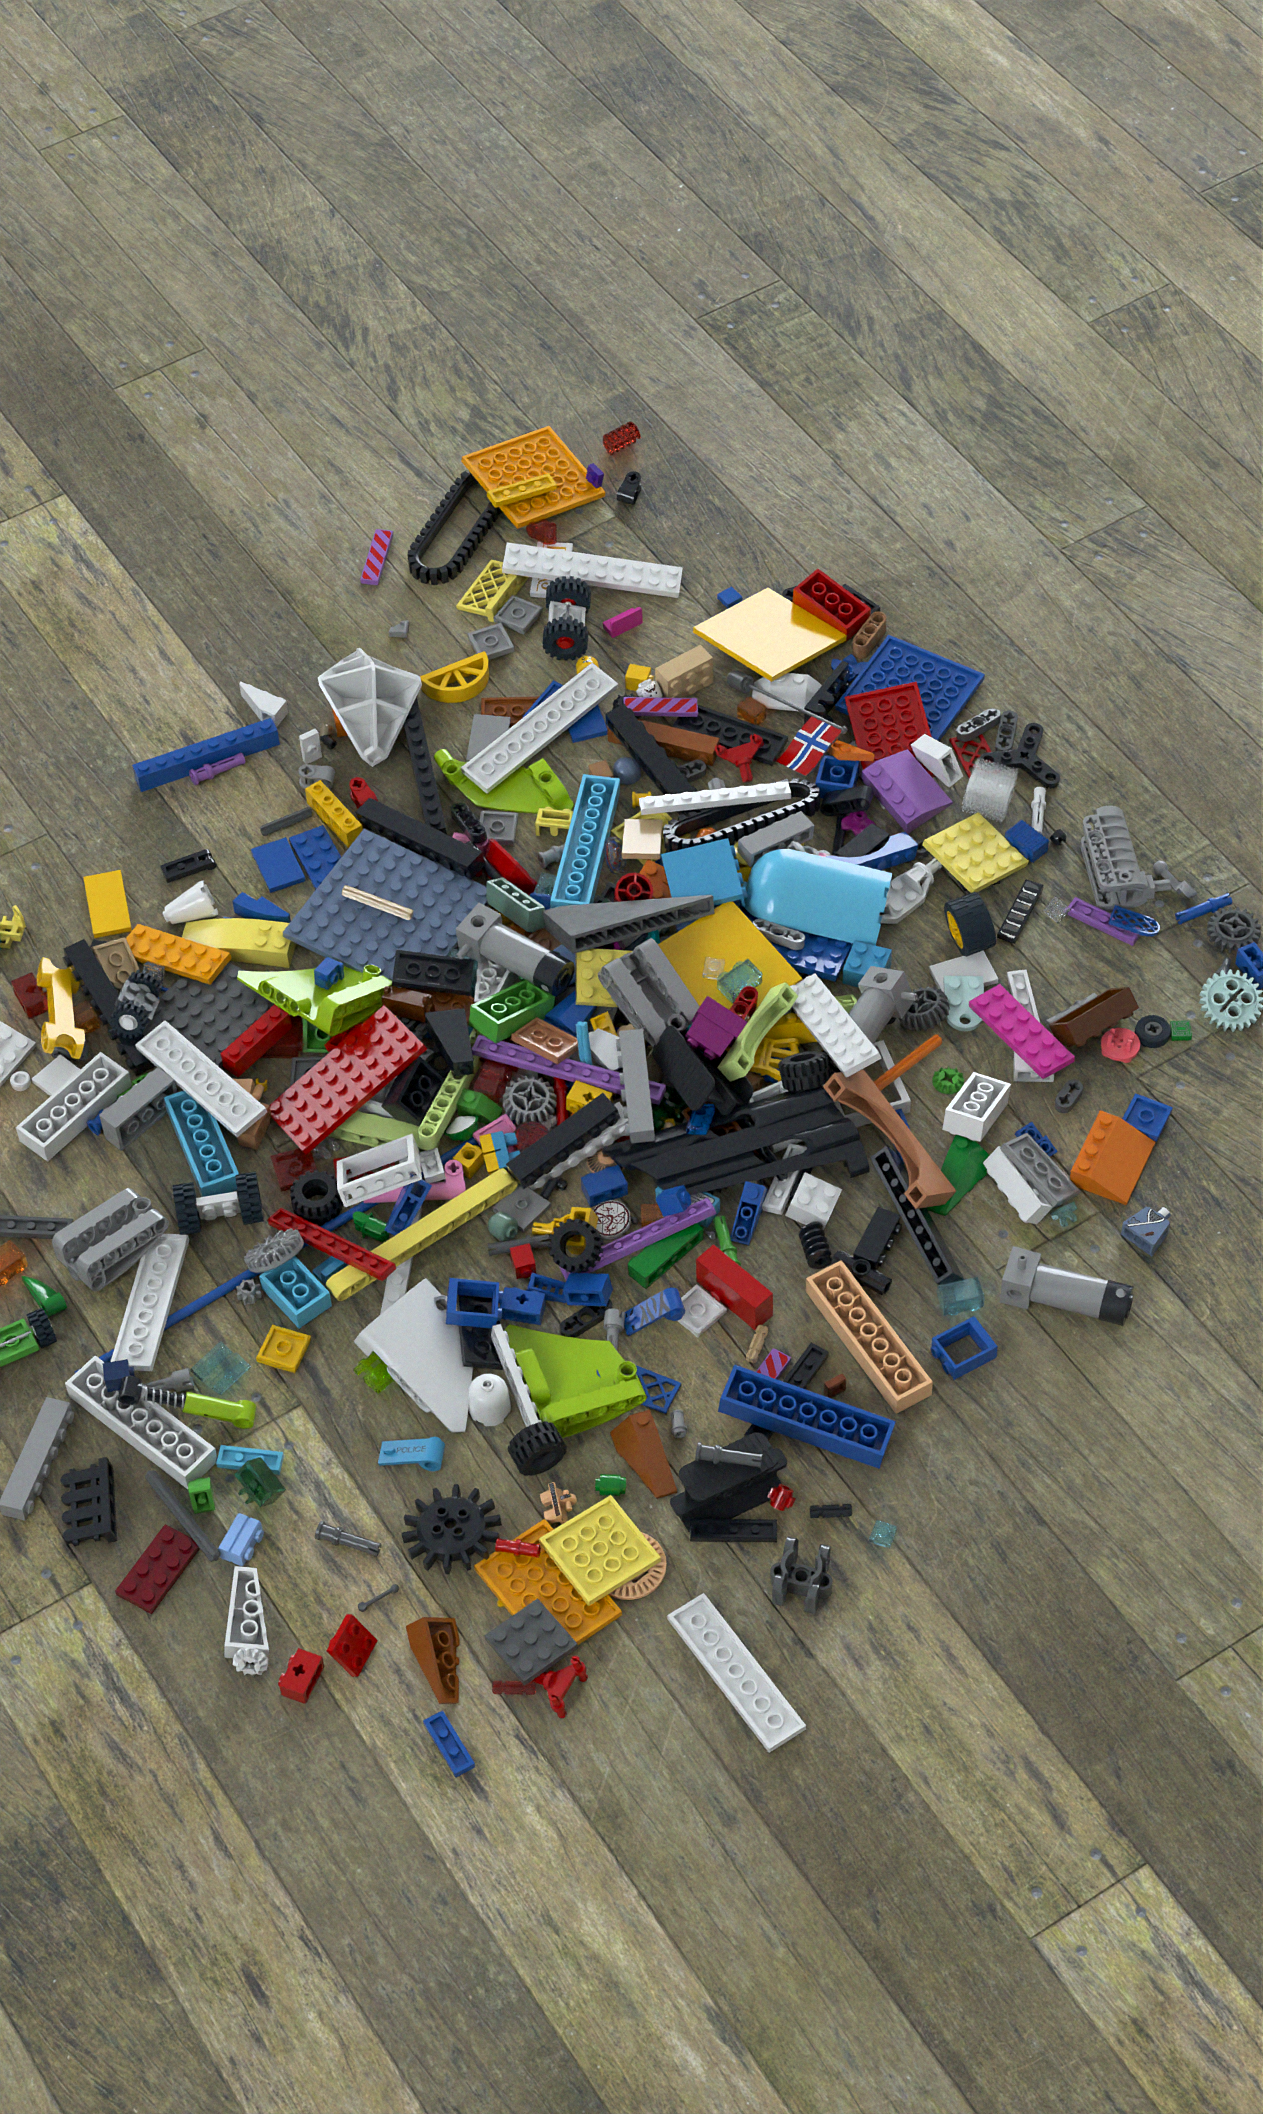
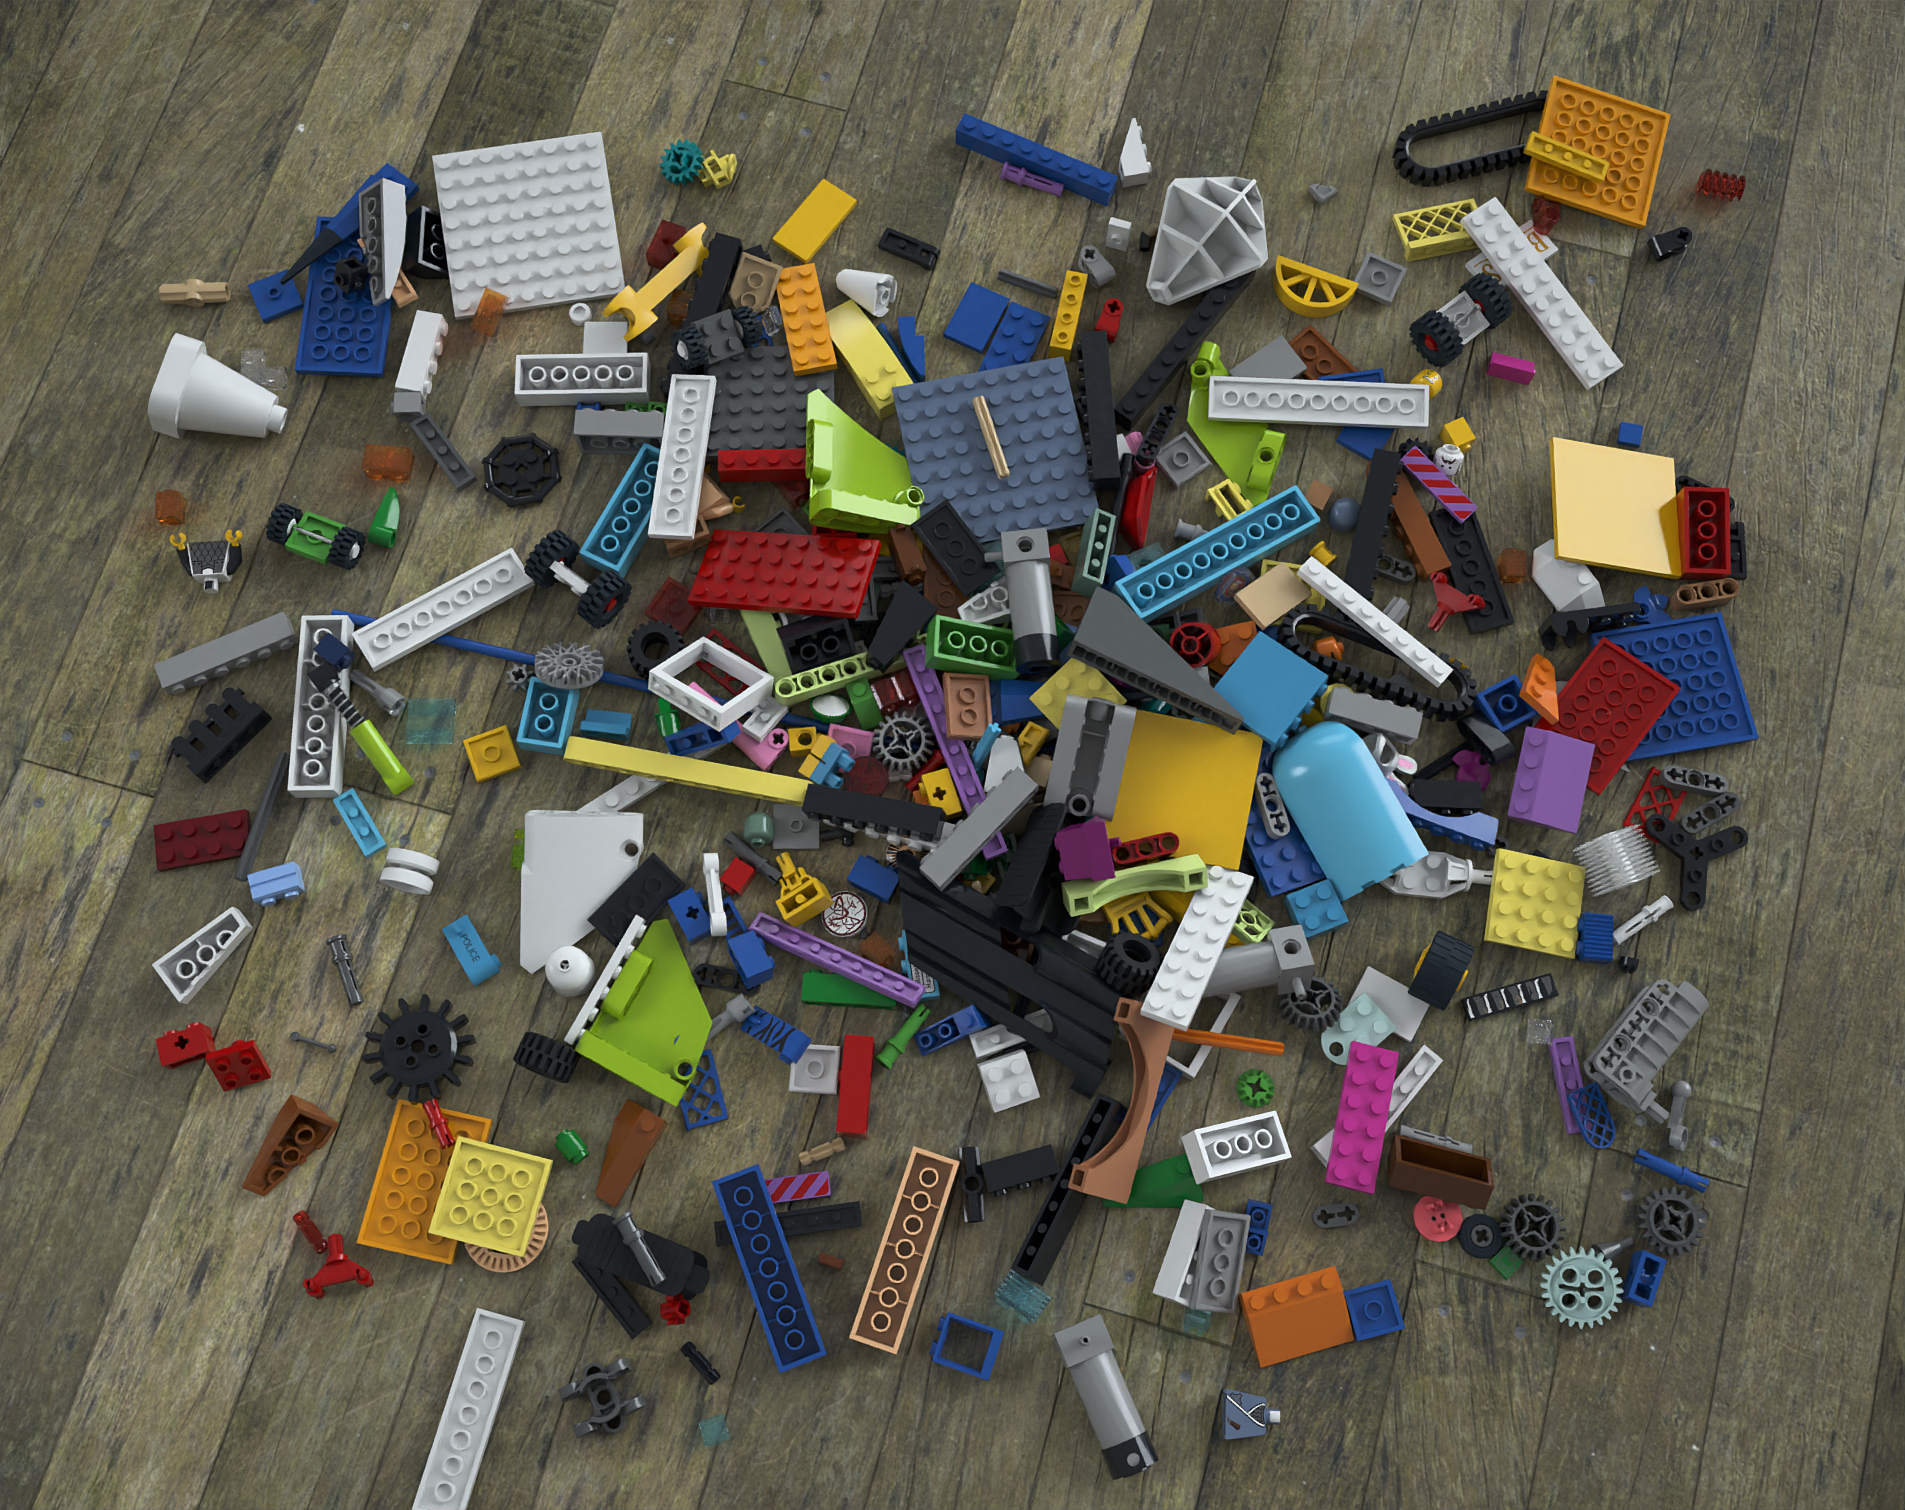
camera: 45 degrees right, 20 degrees up
(90, 1183) = (521, 458): none -> black plate
(109, 1239) = (472, 524): light grey panel -> none
(201, 1495) = (292, 813): bright green slope -> none
(250, 1655) = (163, 994): white gear -> none
(259, 1483) = (336, 853): clear green brick -> none
(320, 1445) = (409, 871): none -> white wheel
(328, 973) = (881, 462): blue brick -> none
(333, 1244) = (612, 708): red tile -> none
(376, 557) = (1384, 104): medium lavender tile -> none
(449, 1744) = (214, 1224): blue plate -> none
(478, 1289) = (633, 857): blue window -> none
(499, 1270) = (717, 915): none -> white piece
(518, 614) = (1432, 274): light grey plate -> none
(531, 1641) = (357, 1213): dark grey plate -> none
(560, 1239) = (757, 913): black tyre -> none
(561, 1502) = (517, 1118): light nougat hips -> none
(594, 475) = (1650, 202): dark purple plate -> none
(673, 1200) = (895, 959): blue brick -> none
(678, 1425) = (681, 1152): light grey pin -> none
(685, 673) = (1495, 474): tan brick -> none
(700, 1120) = (993, 915): clear blue tile -> none
(713, 967) = (1174, 784): clear plate -> none
(740, 976) = (1179, 819): clear light blue brick -> none
(811, 740) = (1521, 651): flag -> none
(815, 1245) = (965, 1118): black piece -> none
(938, 759) = (1606, 783): white slope -> none
(1184, 999) = (1549, 1215): none -> dark grey gear

